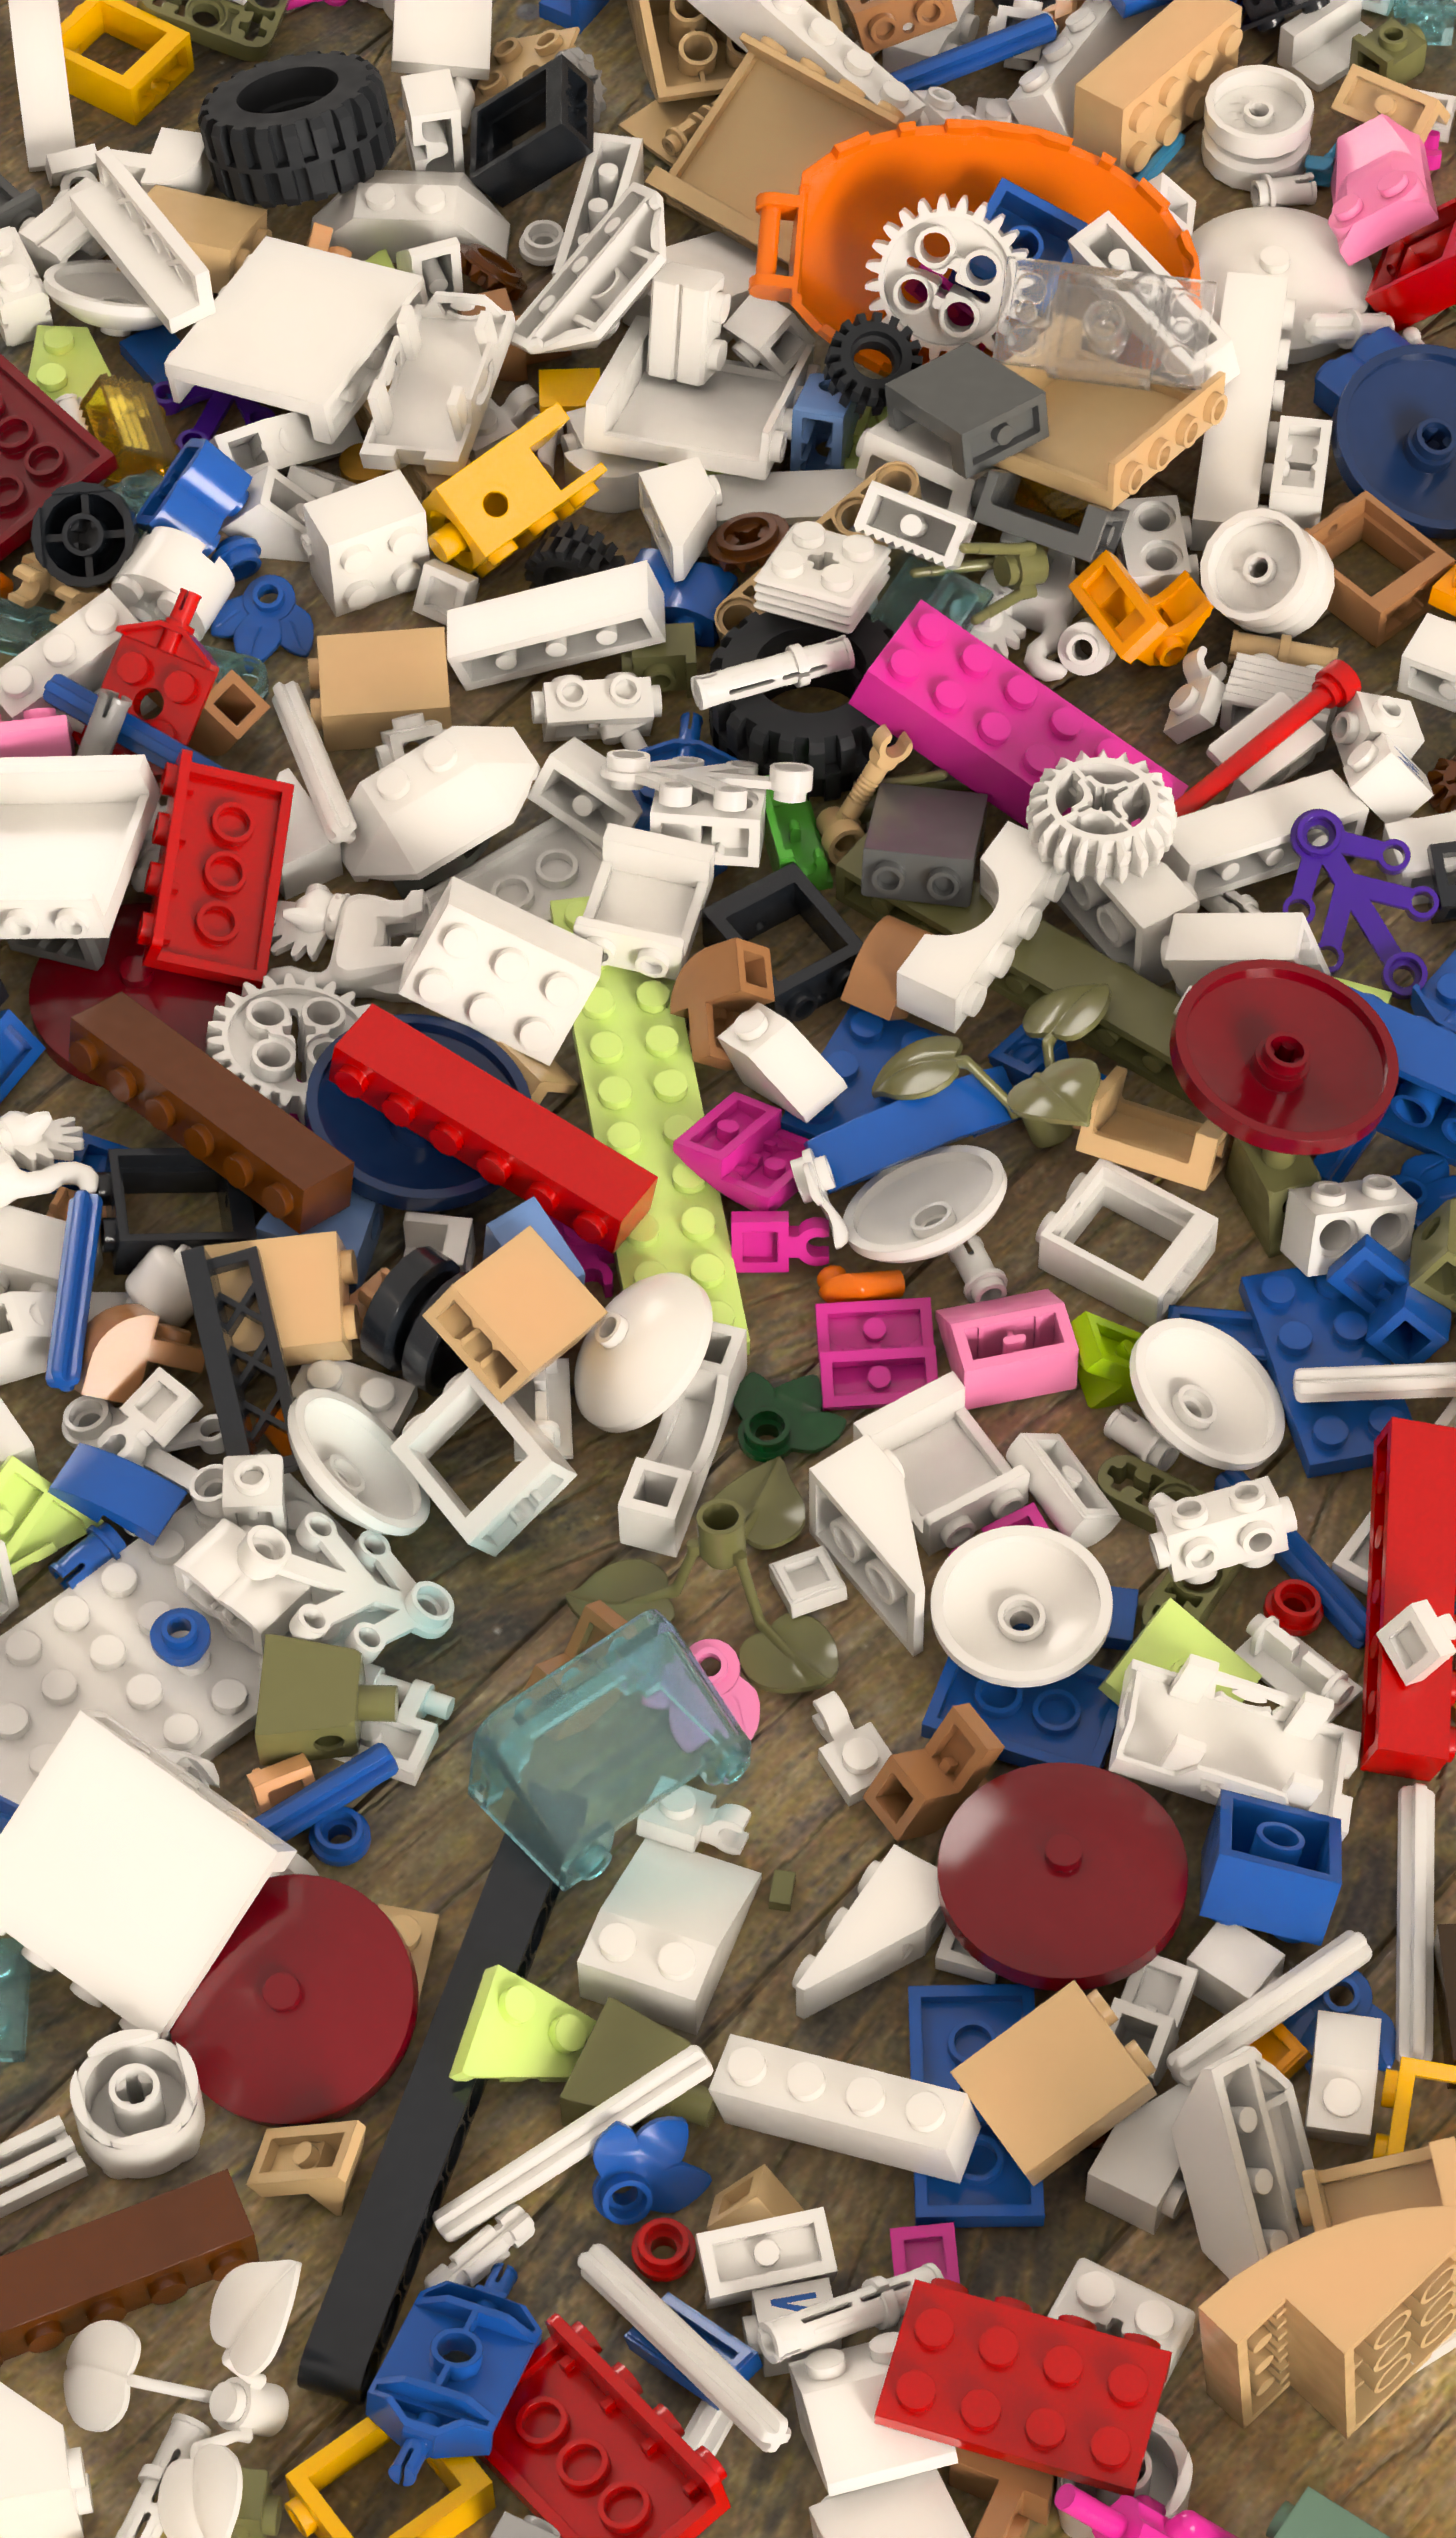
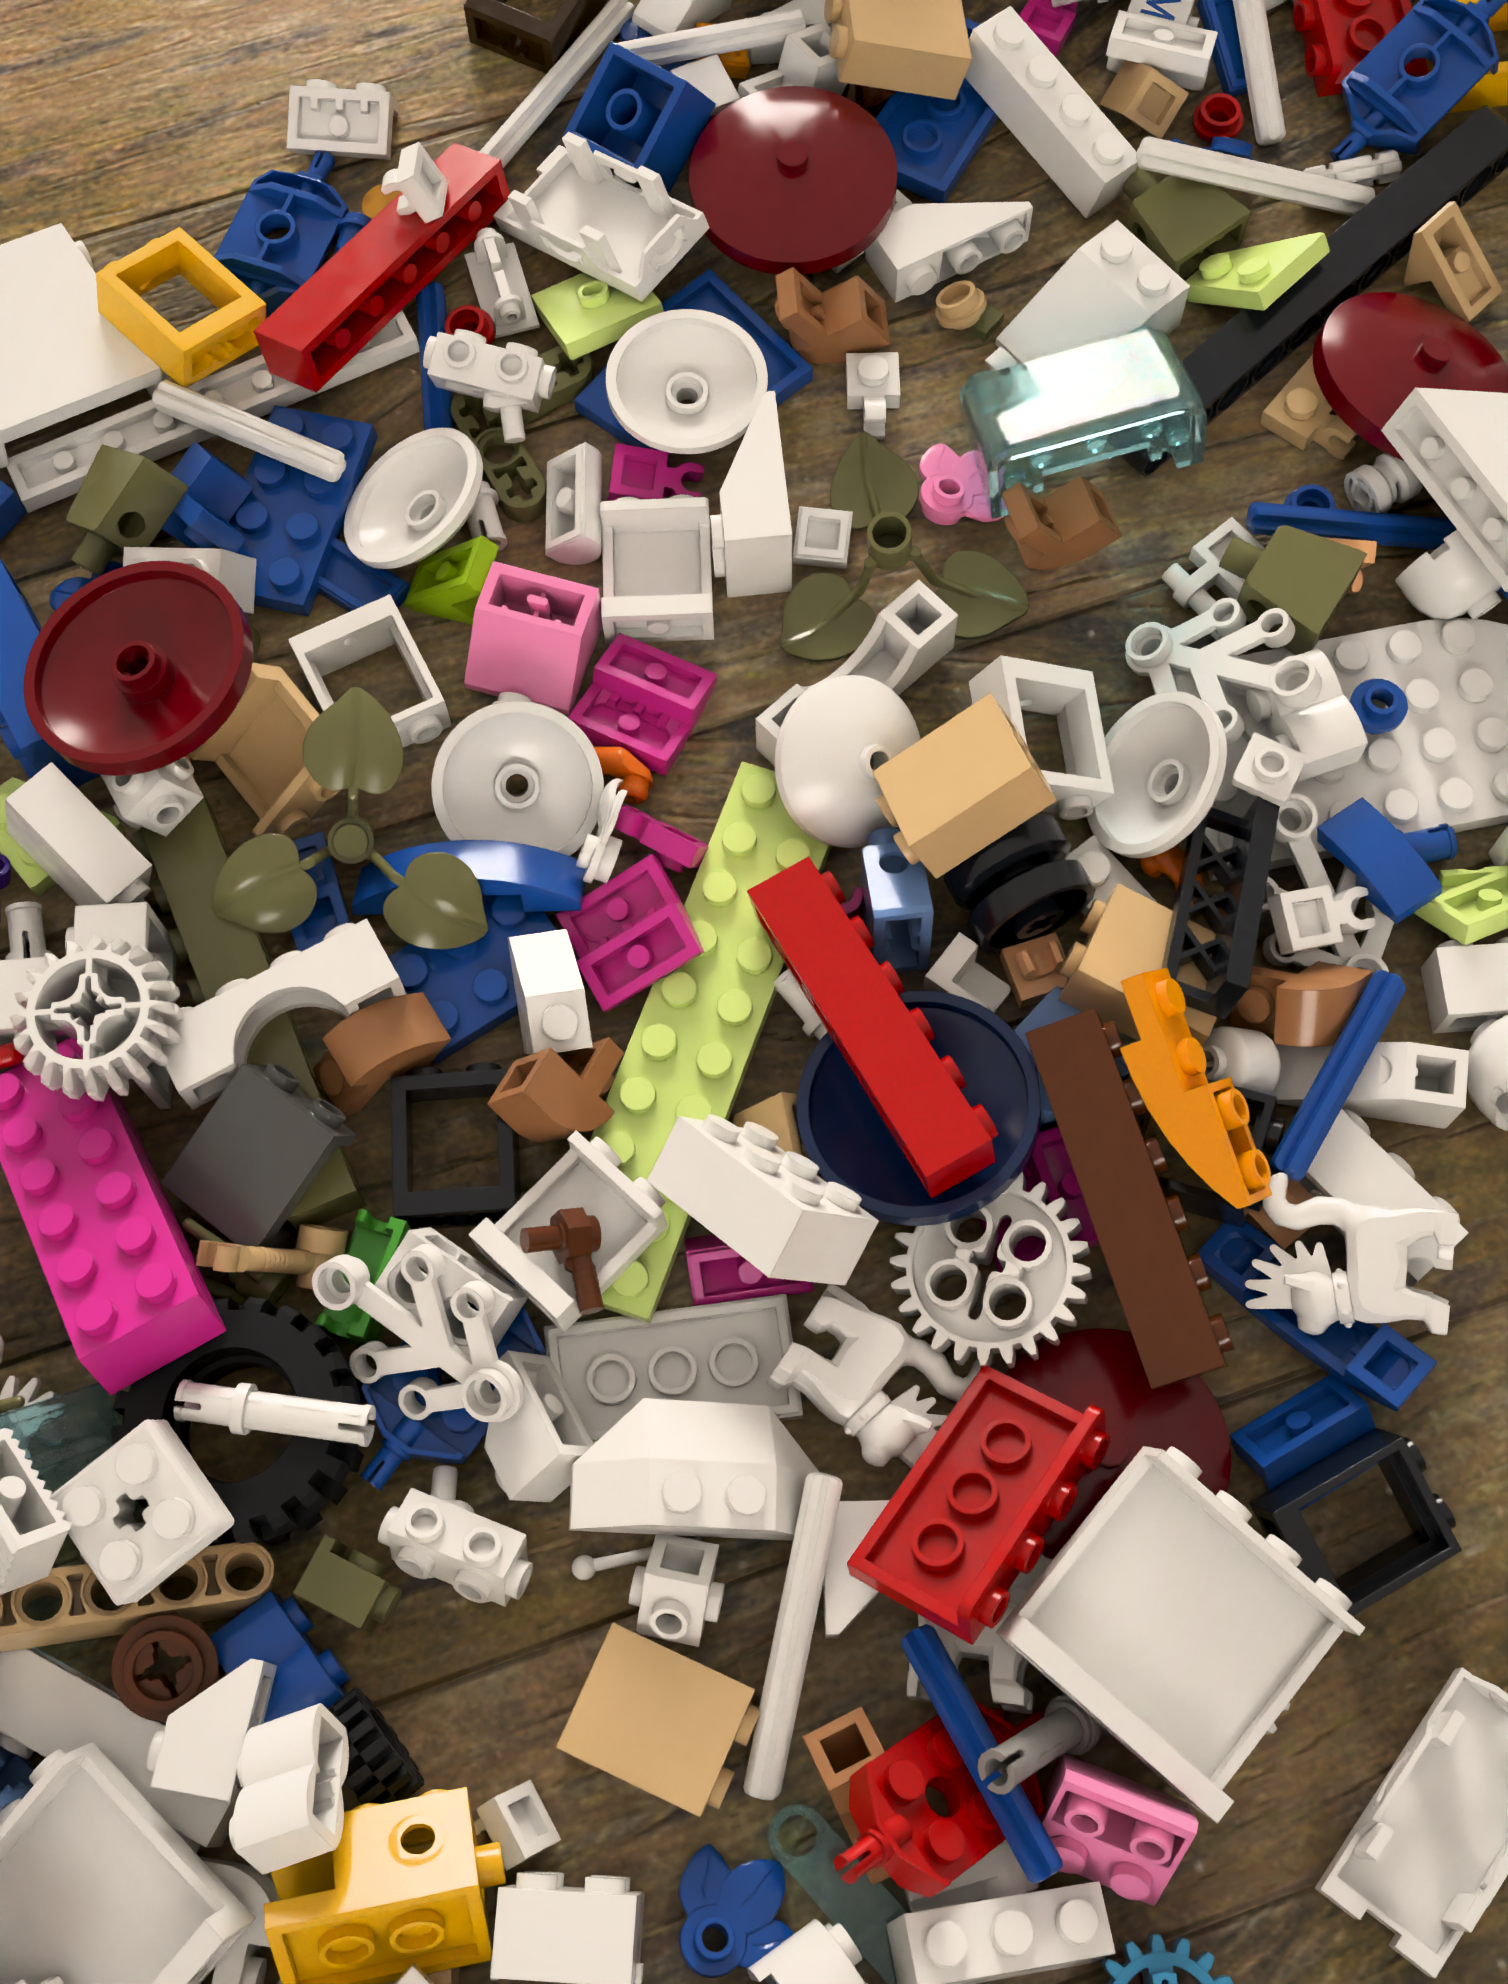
camera: 150 degrees left, 15 degrees up
(191, 1175) = (1196, 1116): none -> light orange slope
(556, 626) = (437, 1672): white brick -> none
(596, 481) = (290, 1789): none -> white brick
(635, 889) = (573, 1240): none -> reddish brown piece
(788, 1414) = (746, 683): dark green plate -> none
(816, 1875) = (960, 305): none -> tan plate

